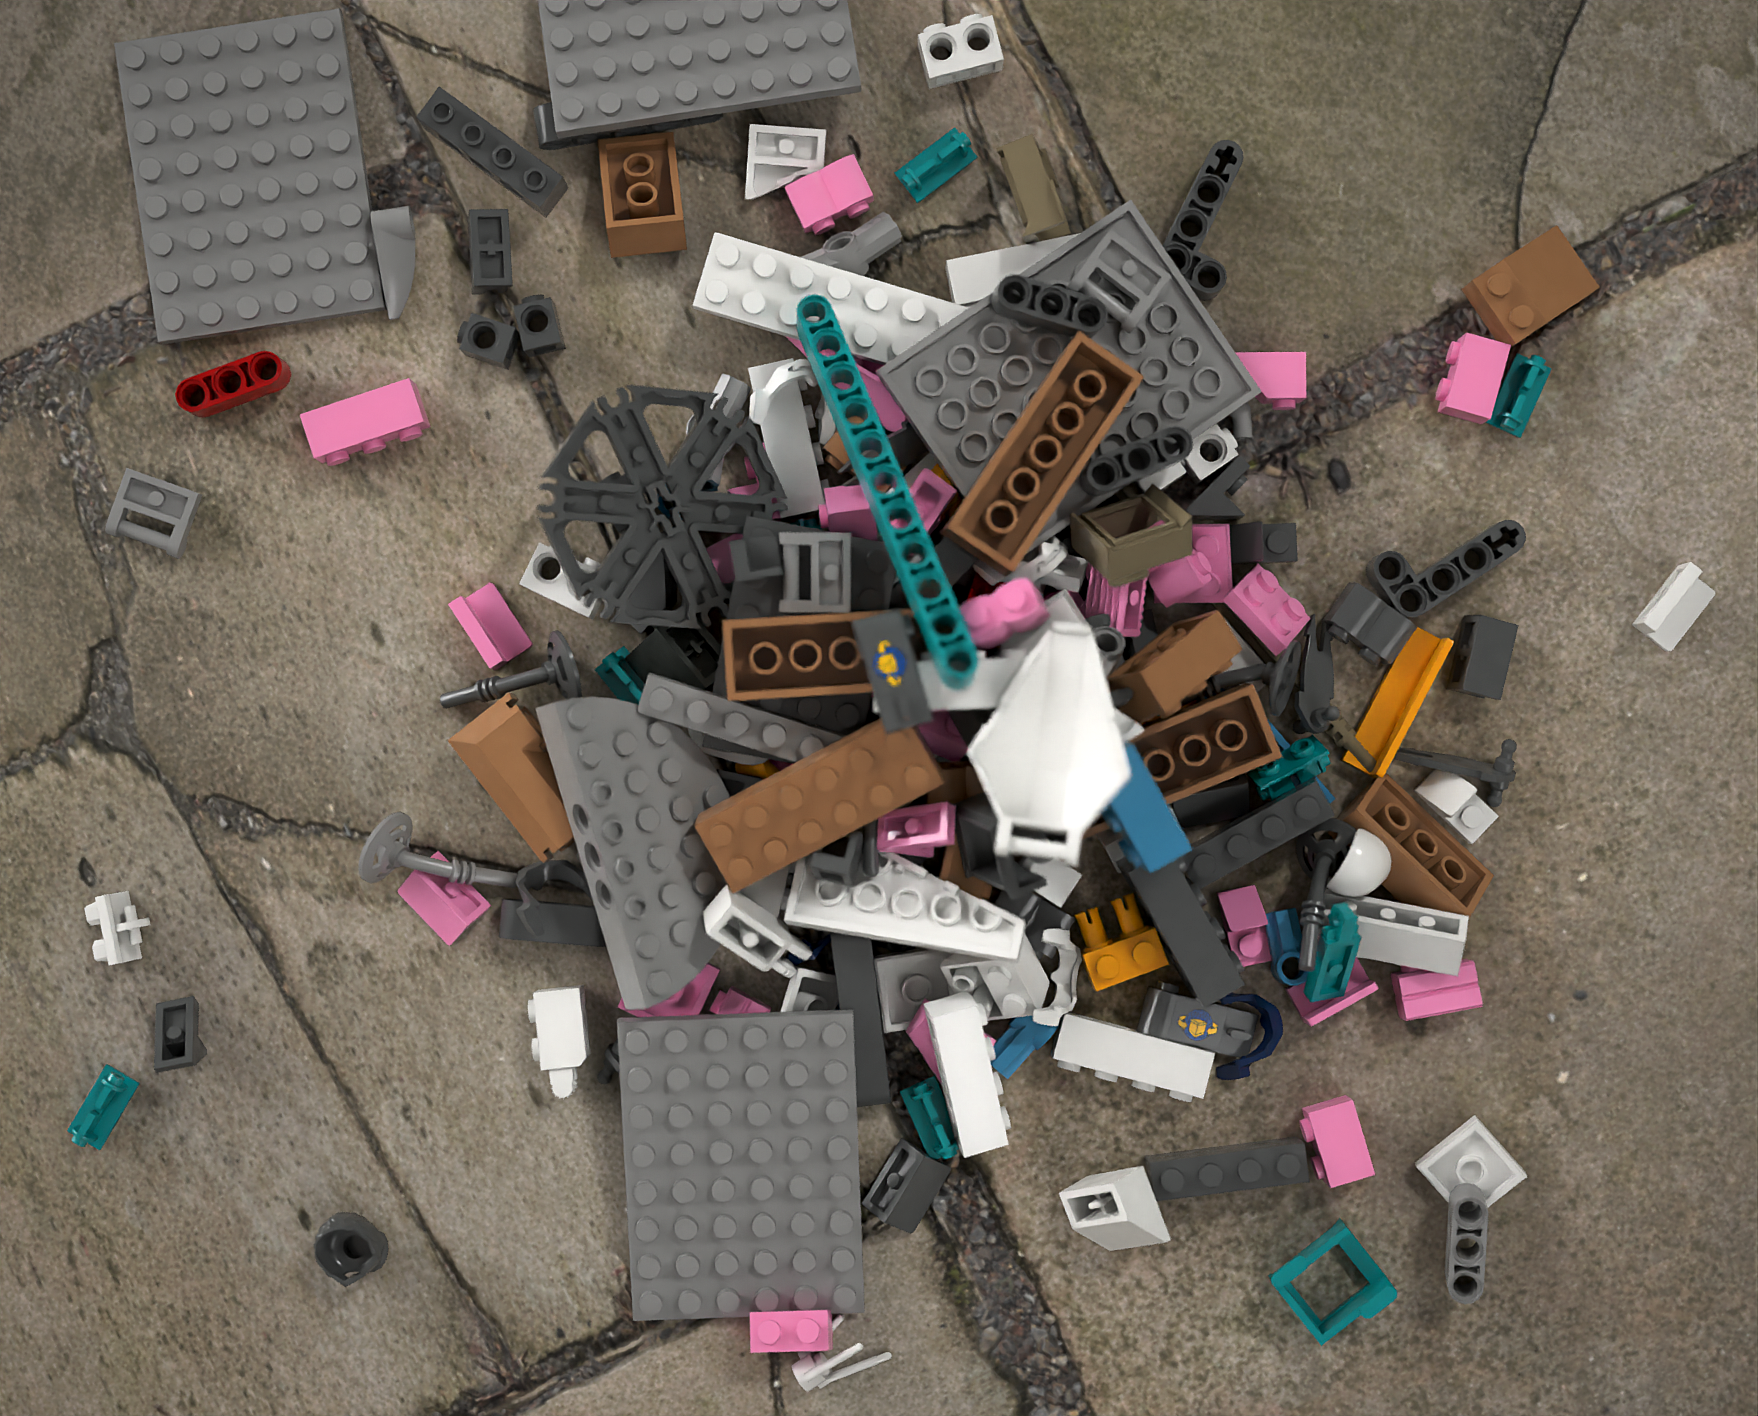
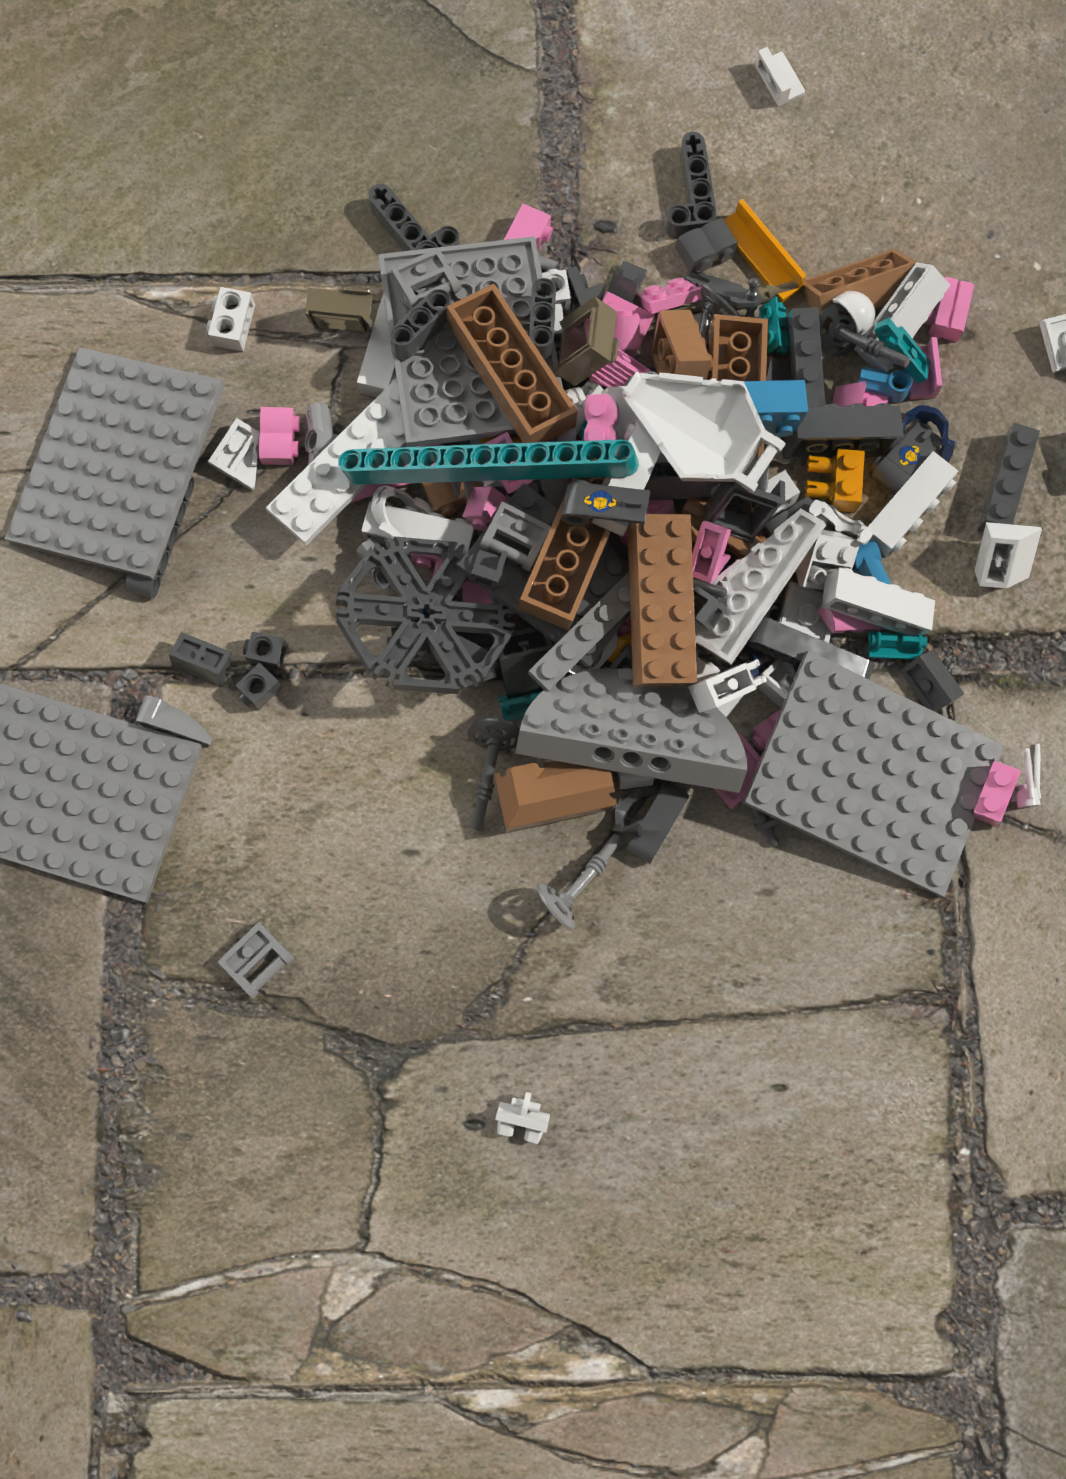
camera: 65 degrees left, 10 degrees down
(102, 1108) = (639, 1189): teal hinge -> none
(177, 1035) = (614, 1109): dark grey slope -> none
(216, 379) = (204, 877): red beam -> none
(349, 1245) = (812, 1058): dark grey hair -> none
(365, 422) = (269, 790): bright pink brick -> none
(442, 904) = (609, 891): bright pink panel -> none
(491, 626) = (443, 774): bright pink panel -> none
(492, 152) = (138, 627): dark grey brick -> none
(559, 587) = (443, 715): white brick -> none
(561, 1035) = (734, 853): white hinge -> none
(641, 194) = (217, 548): medium nougat slope -> none
(936, 164) = (293, 365): teal hinge -> none
(1336, 1142) = (1020, 406): bright pink brick -> none
(1456, 803) = (839, 248): white slope -> none
(1472, 378) = (586, 122): bright pink brick -> none
(1482, 656) = (758, 191): dark grey hinge -> none
(1496, 774) = (834, 215): dark grey piece -> none
(1519, 394) = (608, 103): teal hinge -> none
(1530, 287) = (549, 71): medium nougat slope -> none

